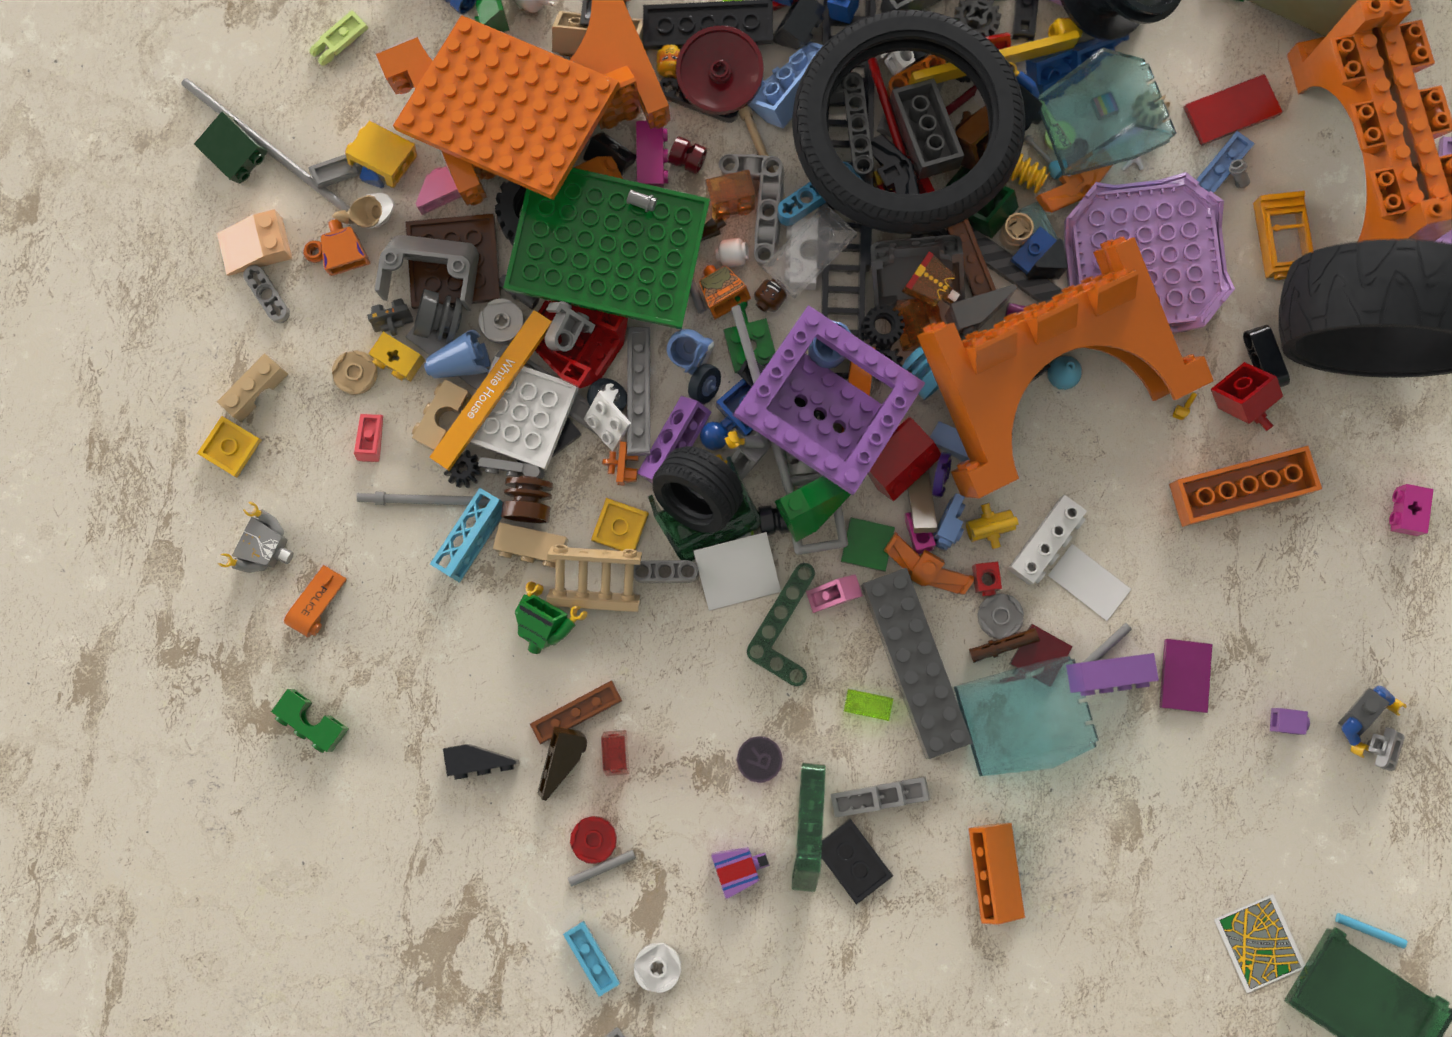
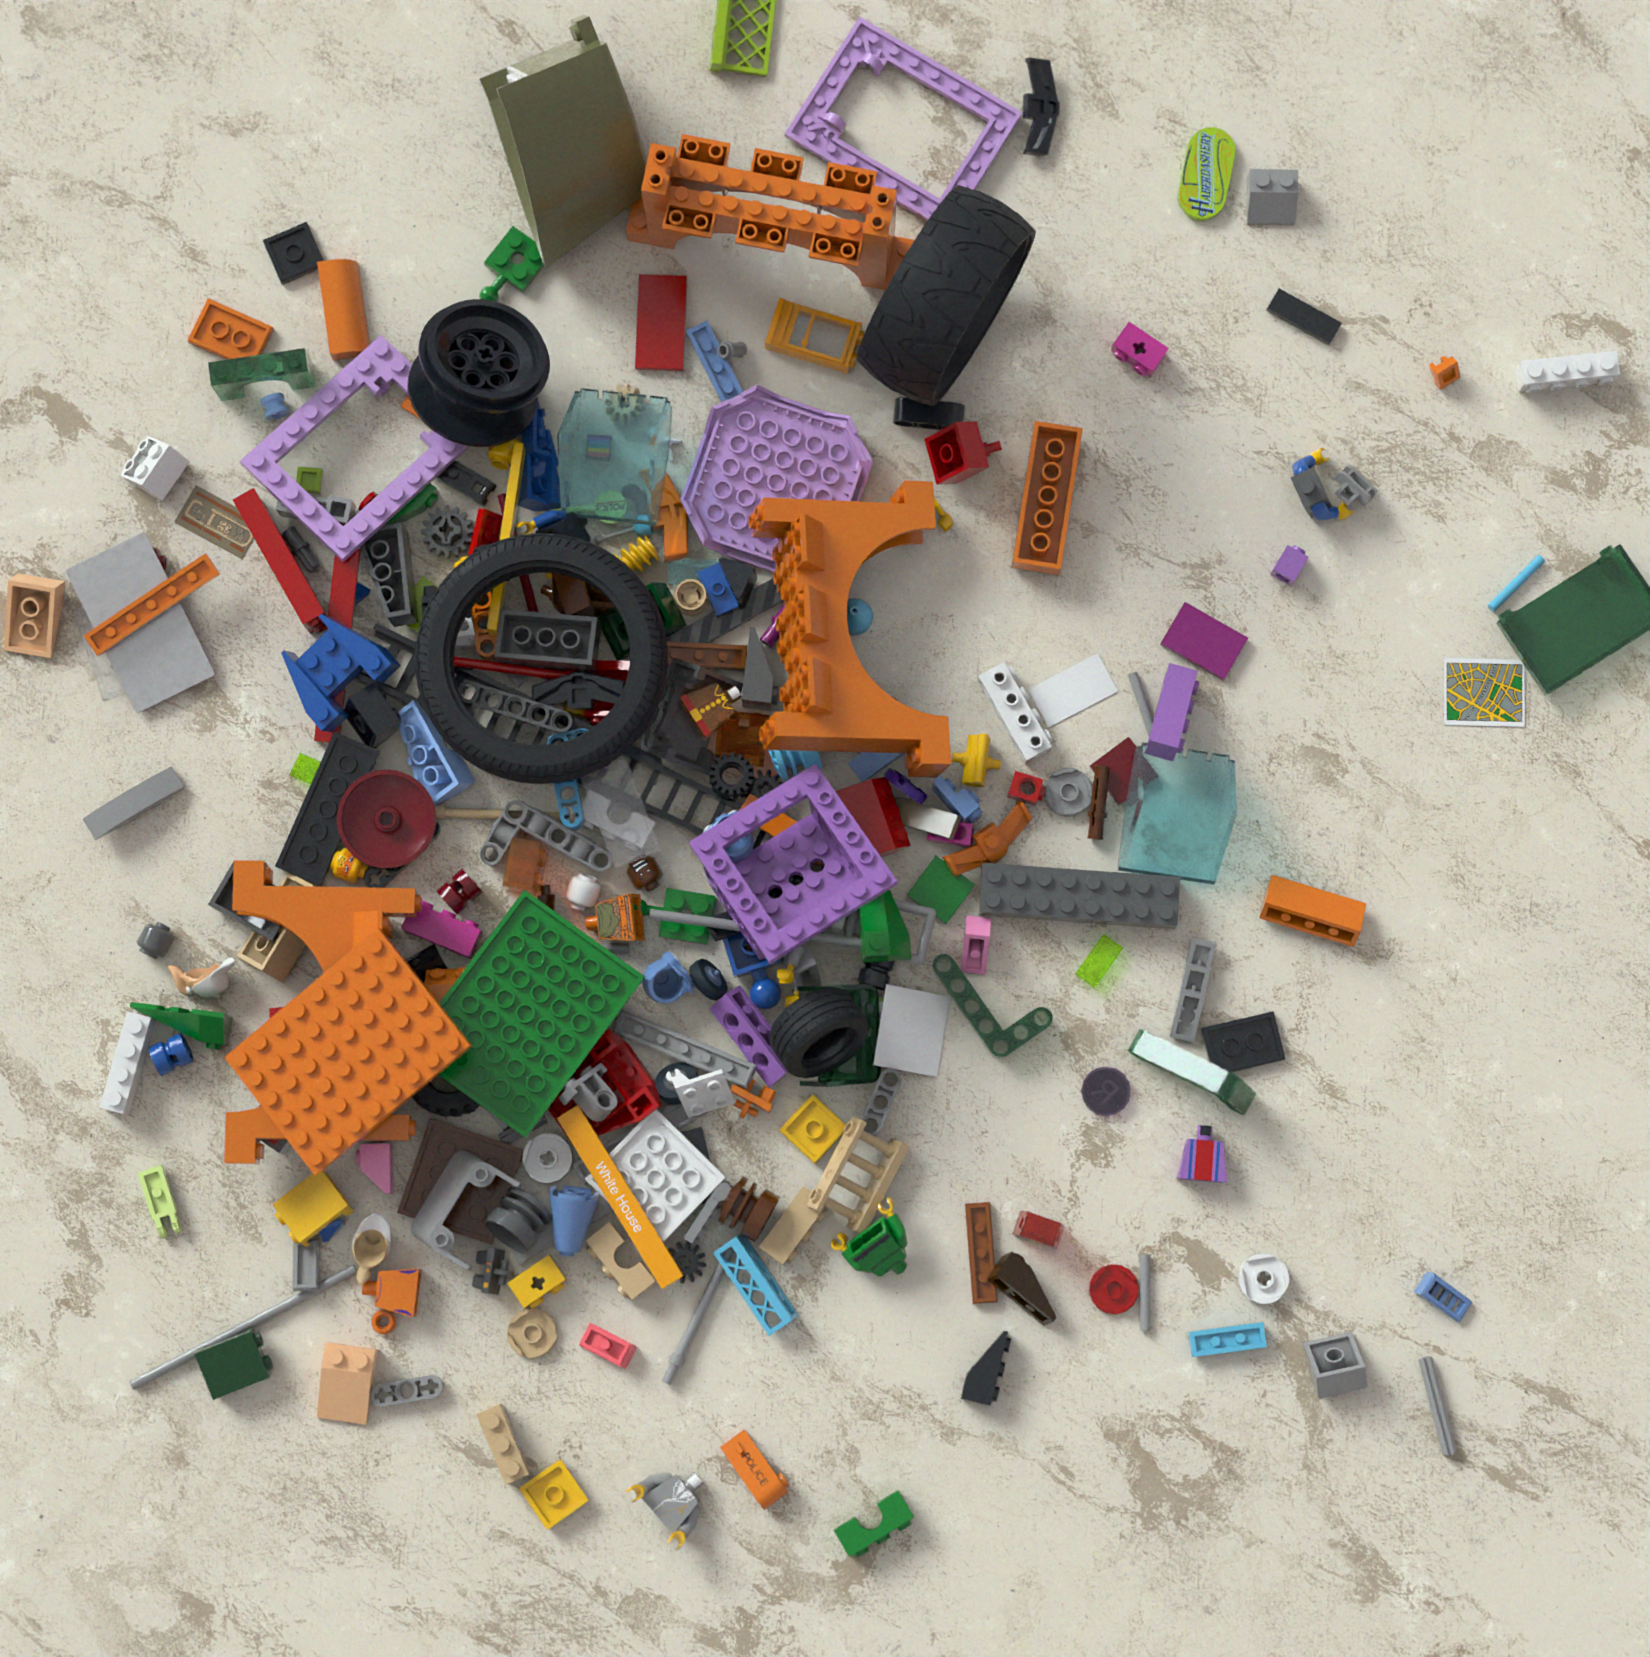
camera: 65 degrees left, 0 degrees up
(642, 200) = (499, 958): light grey pin -> none

